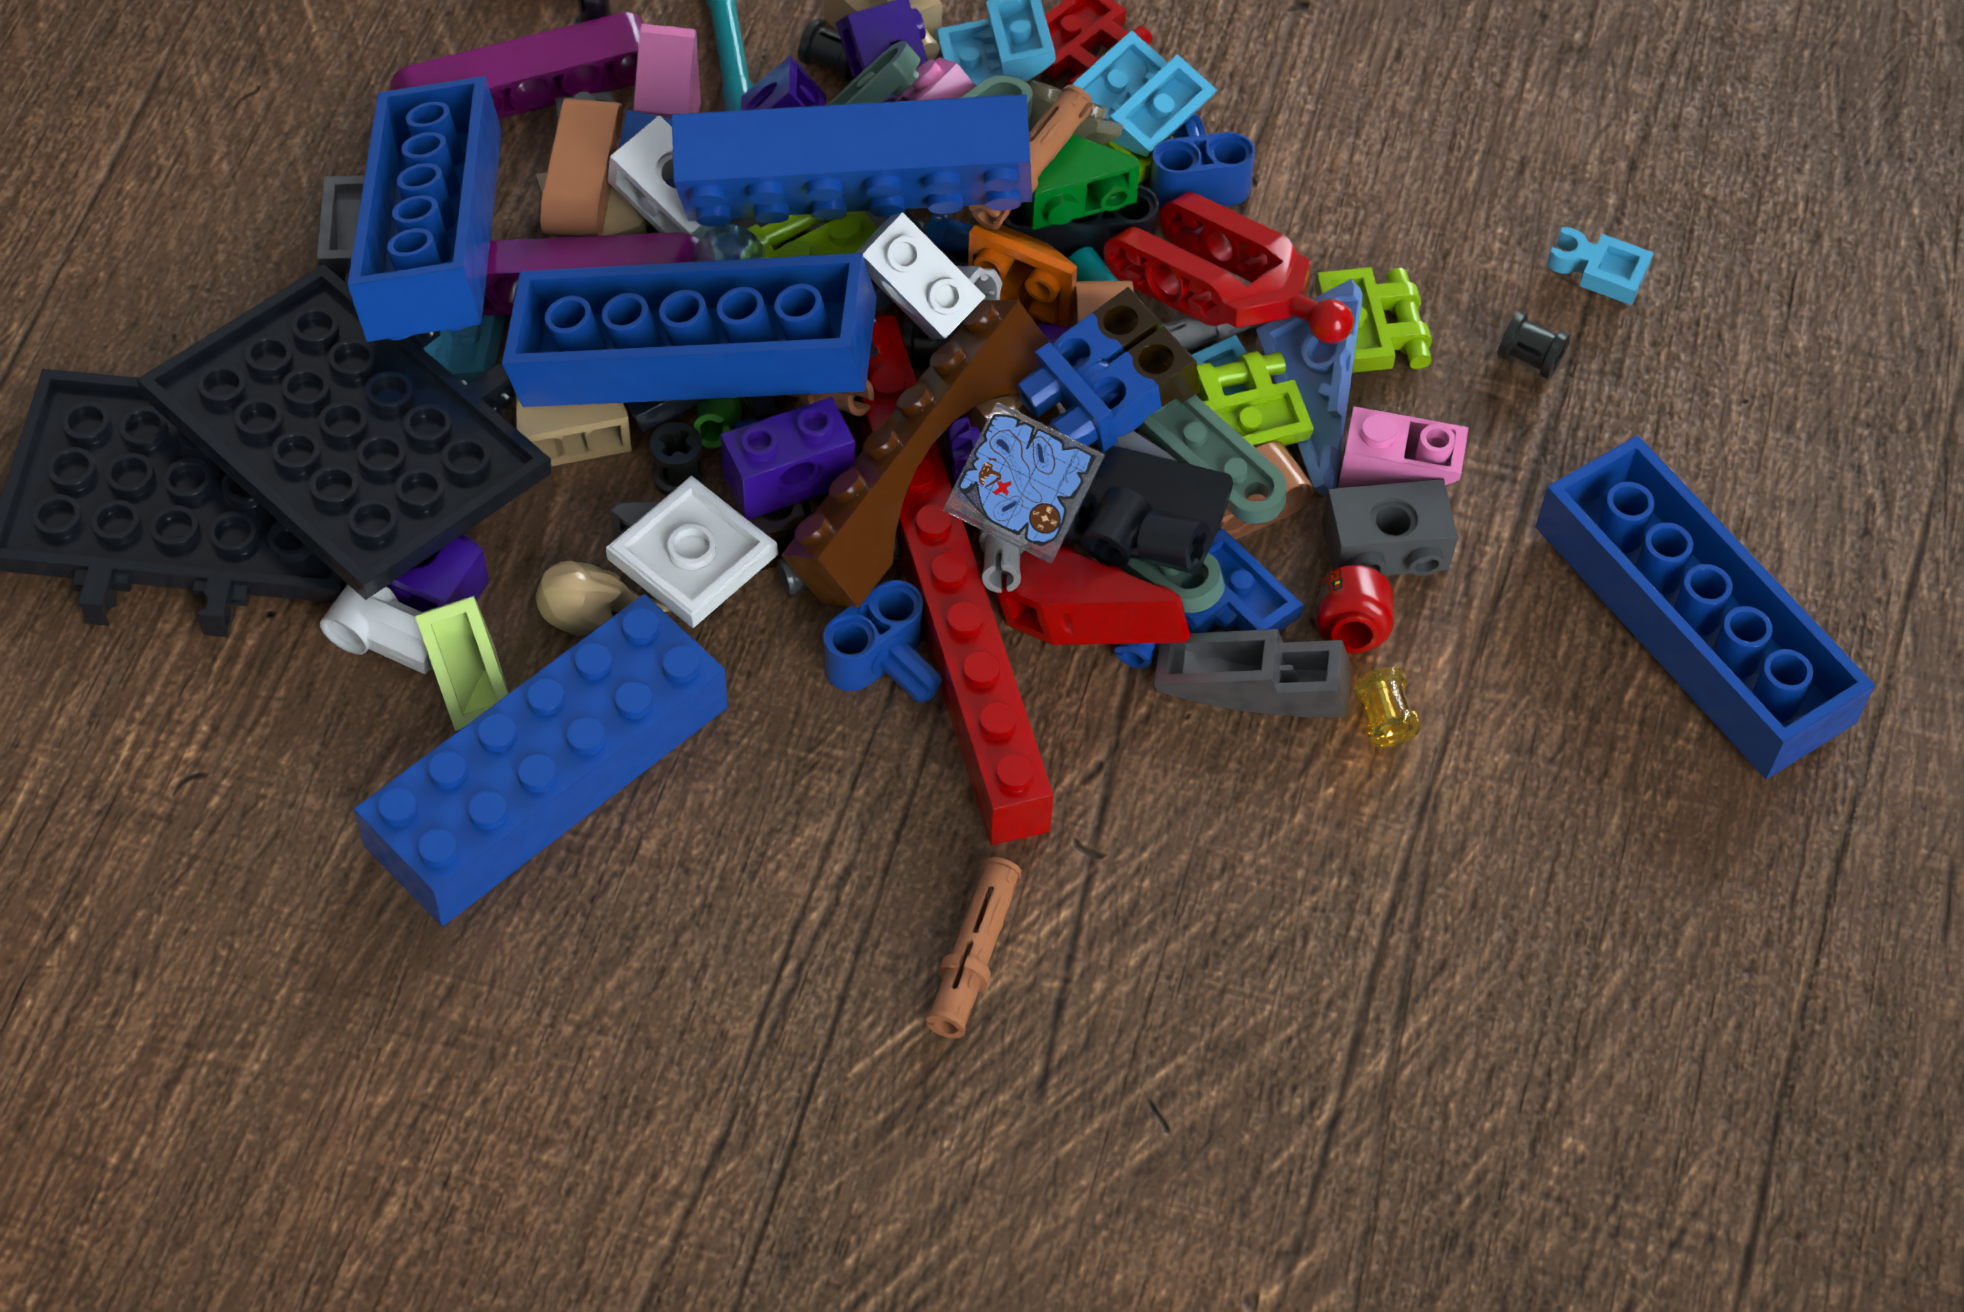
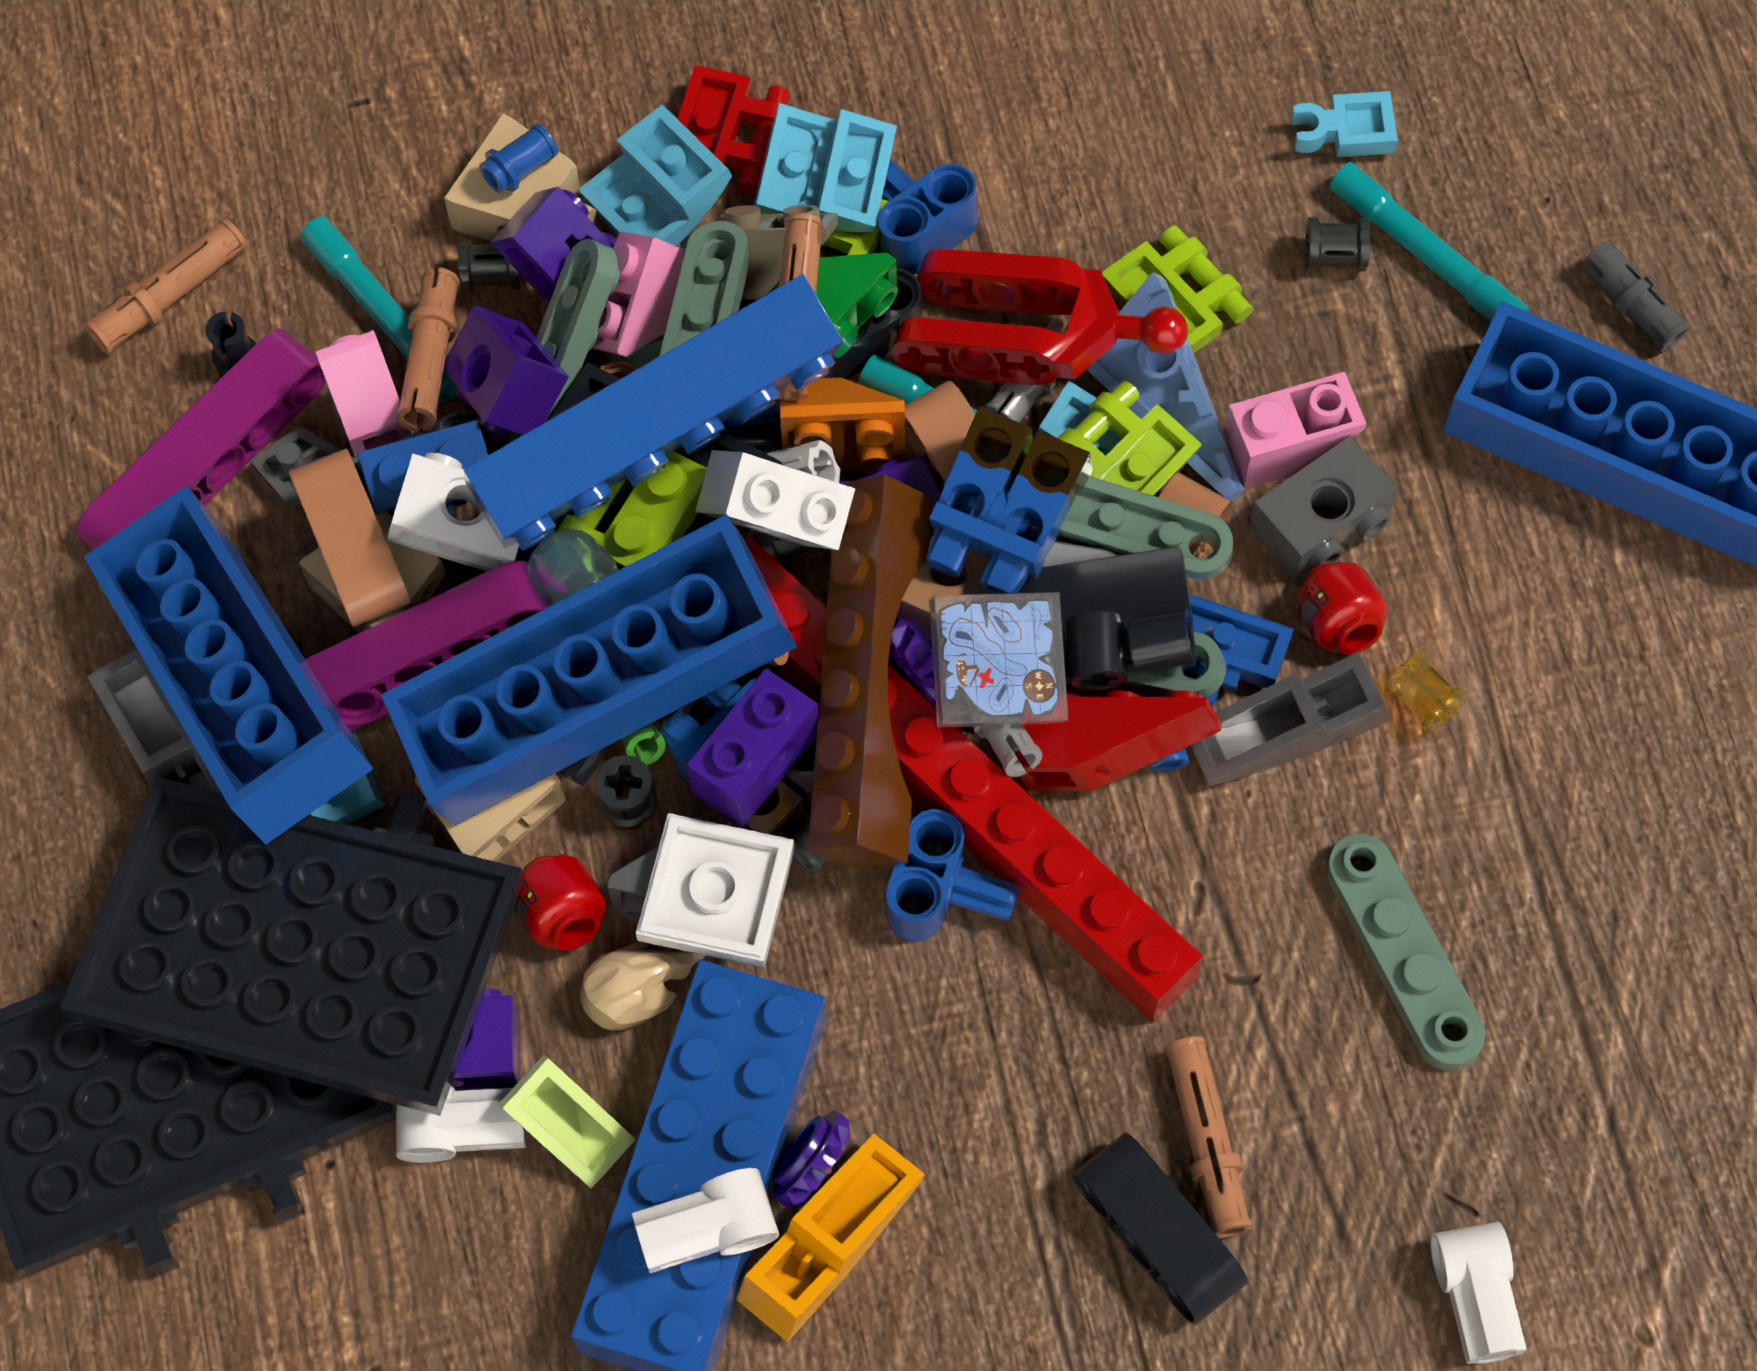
camera: 25 degrees left, 10 degrees up
(524, 773) = (725, 1217): none -> white piece
(570, 510) = (560, 902): none -> red head
(612, 858) = (829, 1237): none -> light orange slope
(635, 786) = (810, 1158): none -> dark purple gear
(750, 64) = (431, 331): none -> nougat pin
(886, 992) = (1160, 1228): none -> black beam
(1128, 1169) = (1476, 1272): none -> white piece
(1238, 898) = (1405, 952): none -> sand green plate
(1590, 336) = (1377, 204): none -> teal piece
(1772, 502) = (1636, 296): none -> dark grey pin

